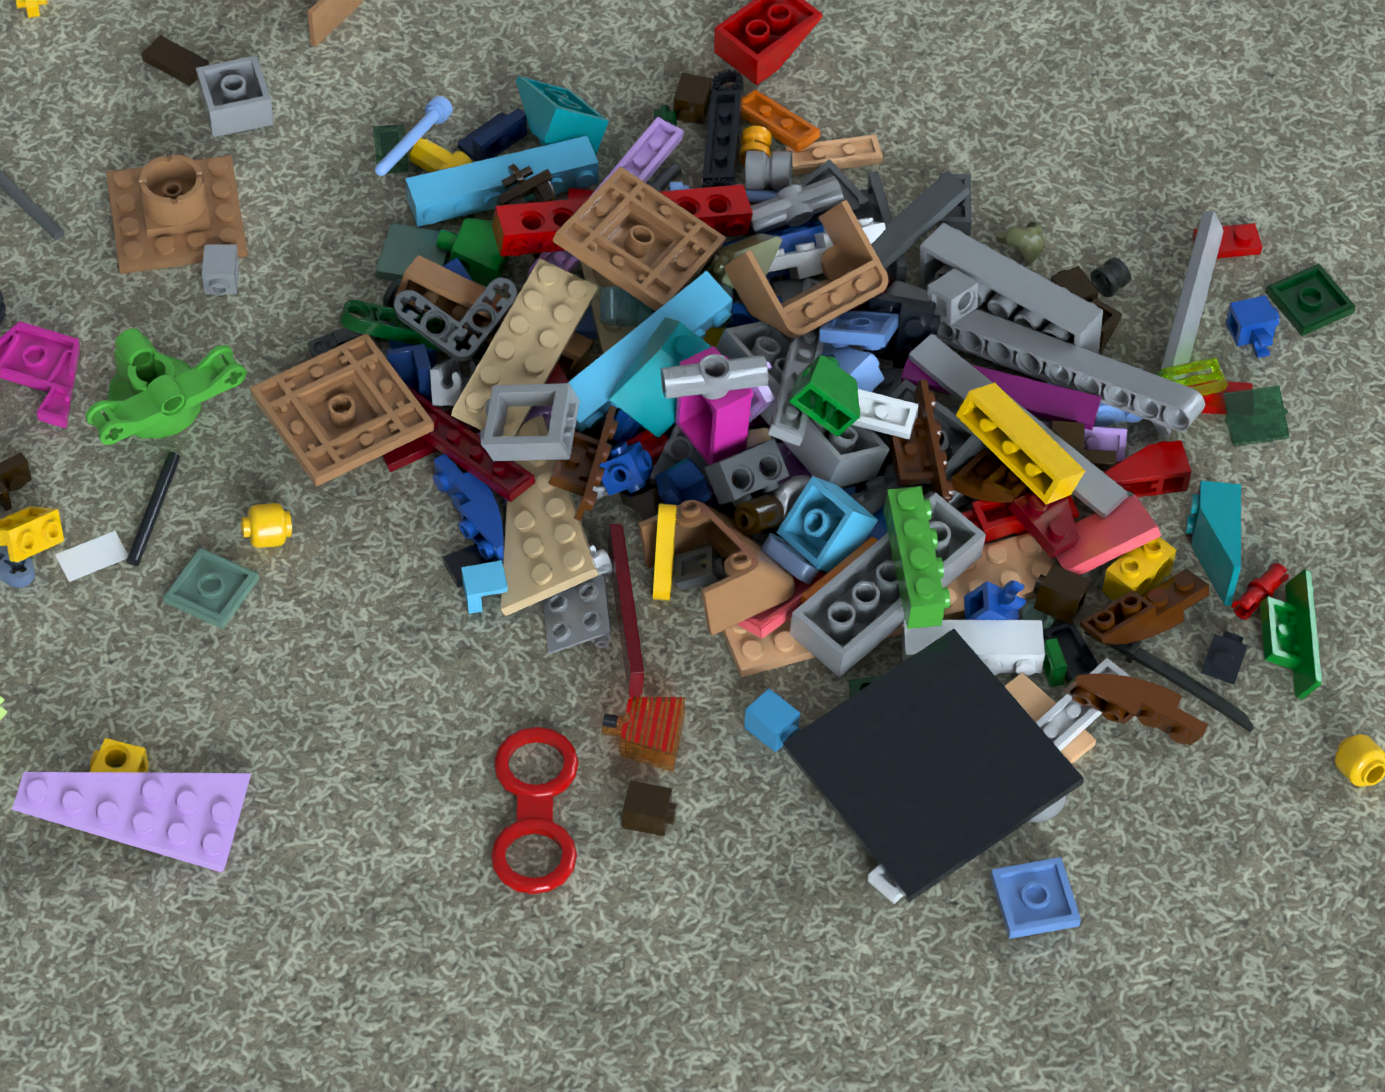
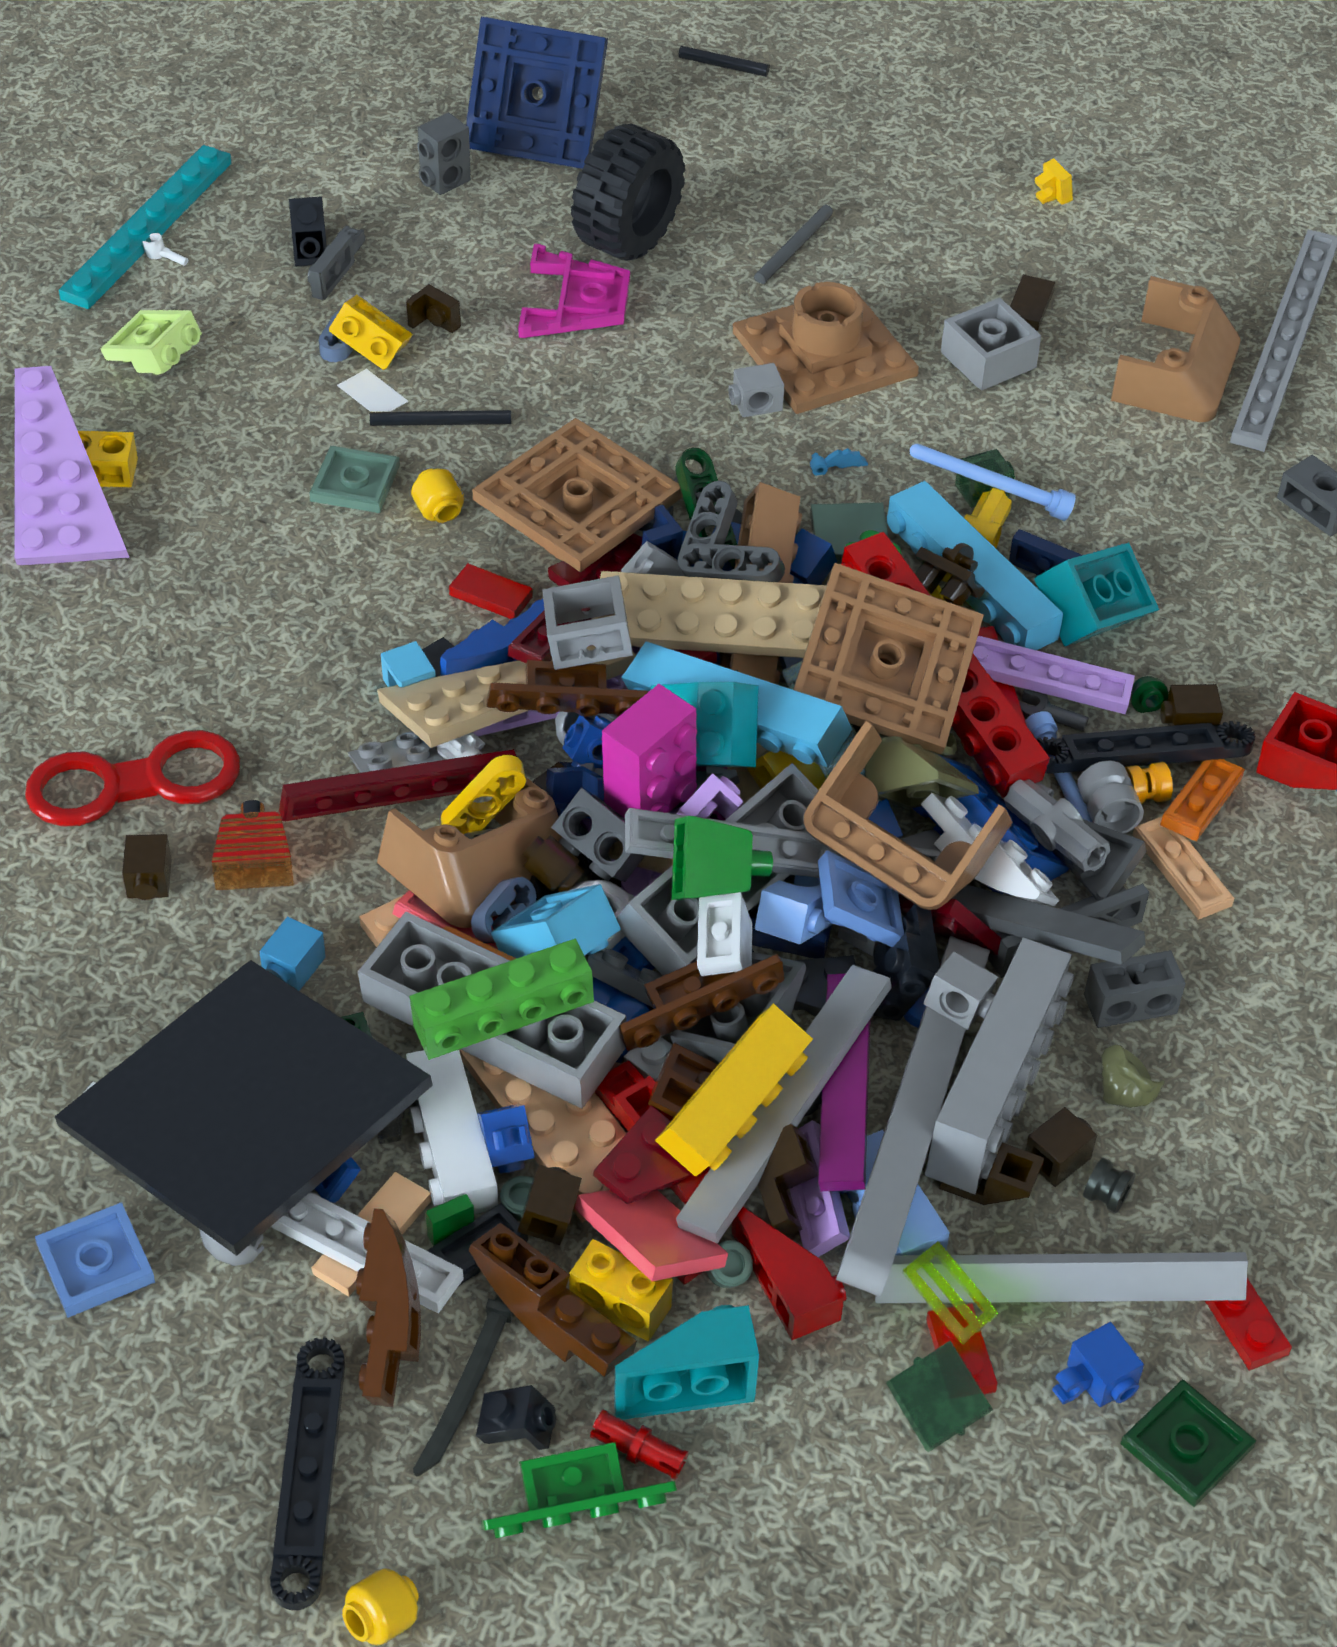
camera: 75 degrees right, 5 degrees down
(157, 392) = (577, 379): bright green piece -> none
(324, 254) = (837, 458): none -> dark azure piece
(395, 514) = (490, 591): none -> red tile
(714, 376) = (633, 706): light grey piece -> none
(1244, 788) = (308, 1474): none -> black plate

